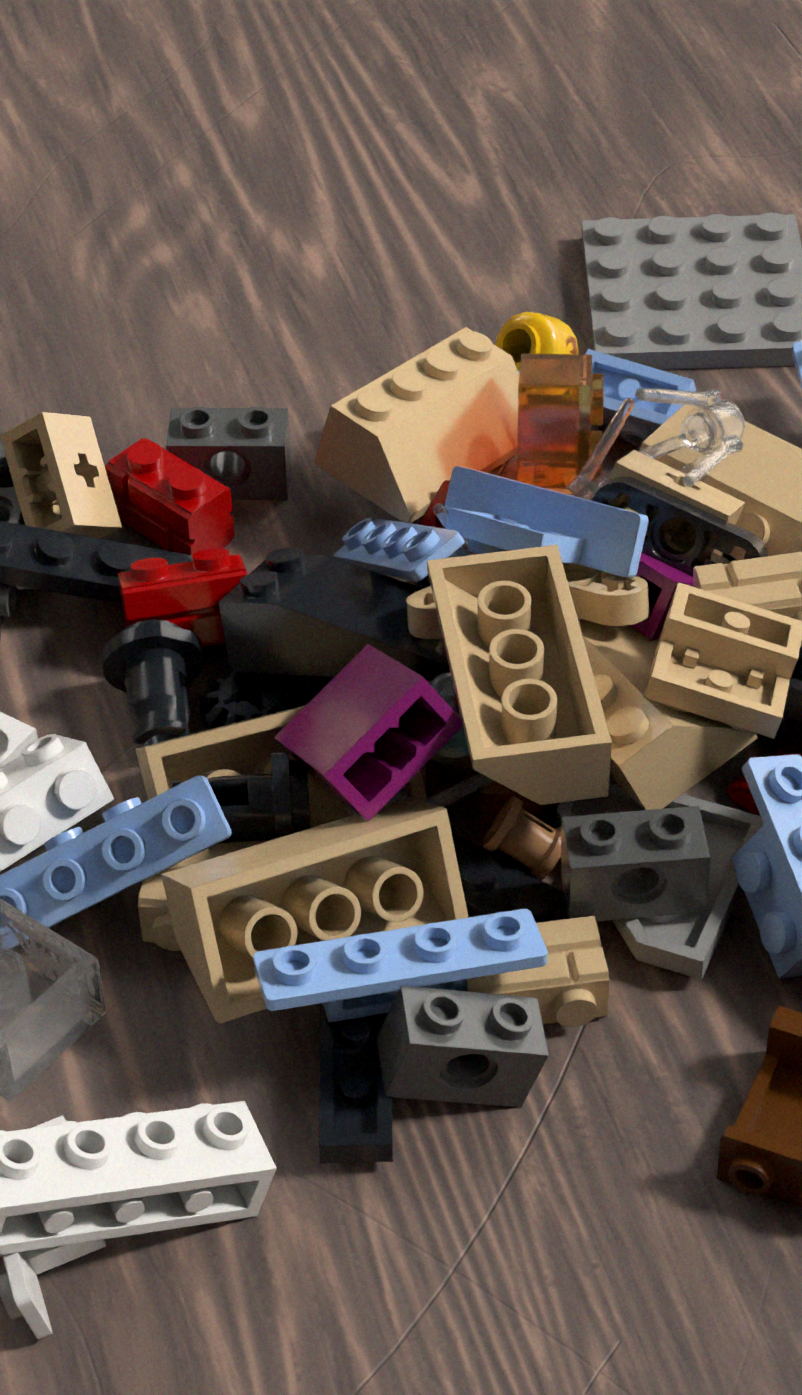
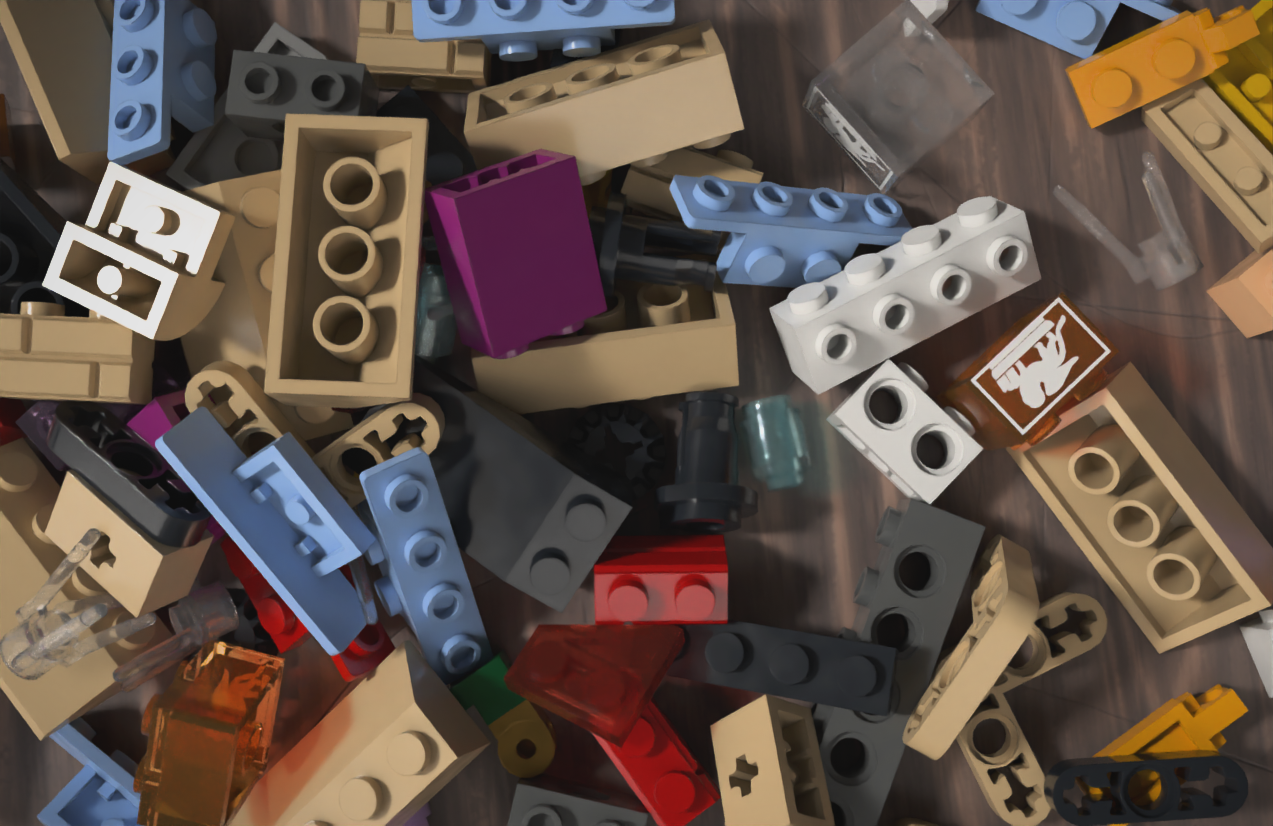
camera: 170 degrees left, 40 degrees up
(91, 715) = (775, 443): none -> clear light blue brick
(233, 513) = (595, 672): none -> clear red wing
(306, 512) = (520, 726): none -> leg

